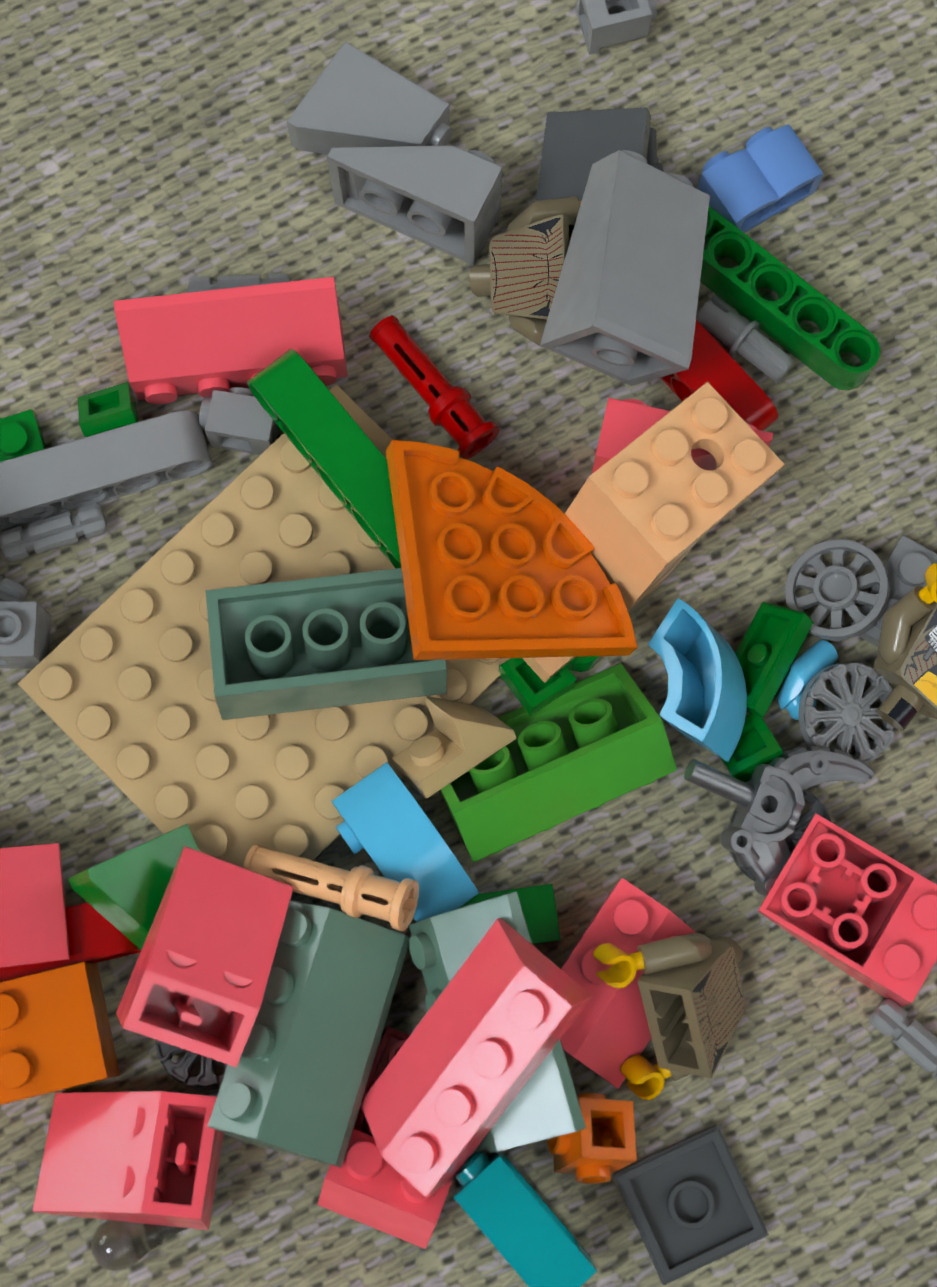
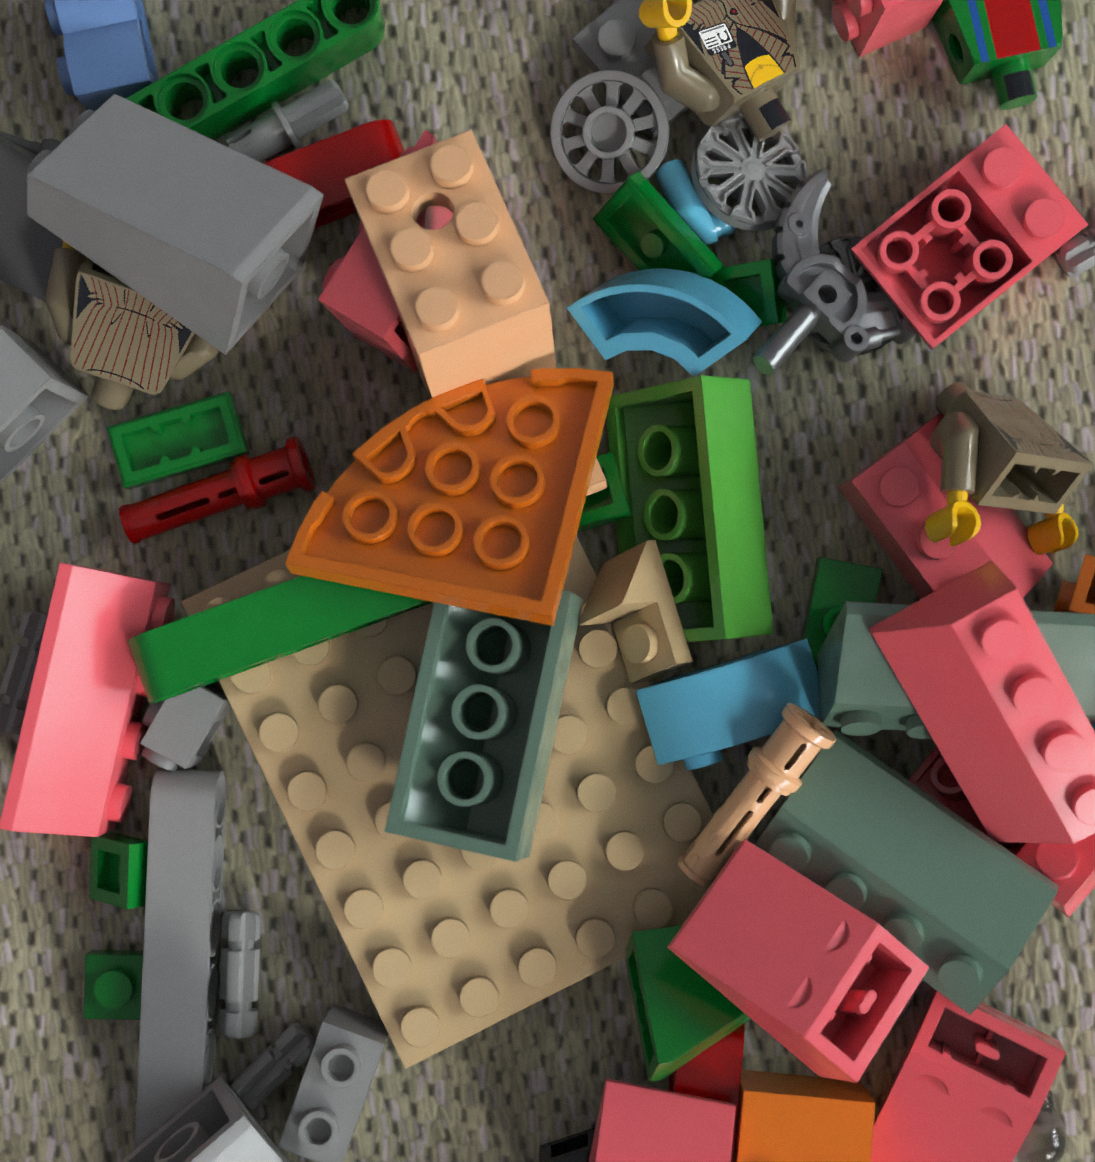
camera: 70 degrees left, 10 degrees up
(463, 341) = (177, 440): none -> green plate

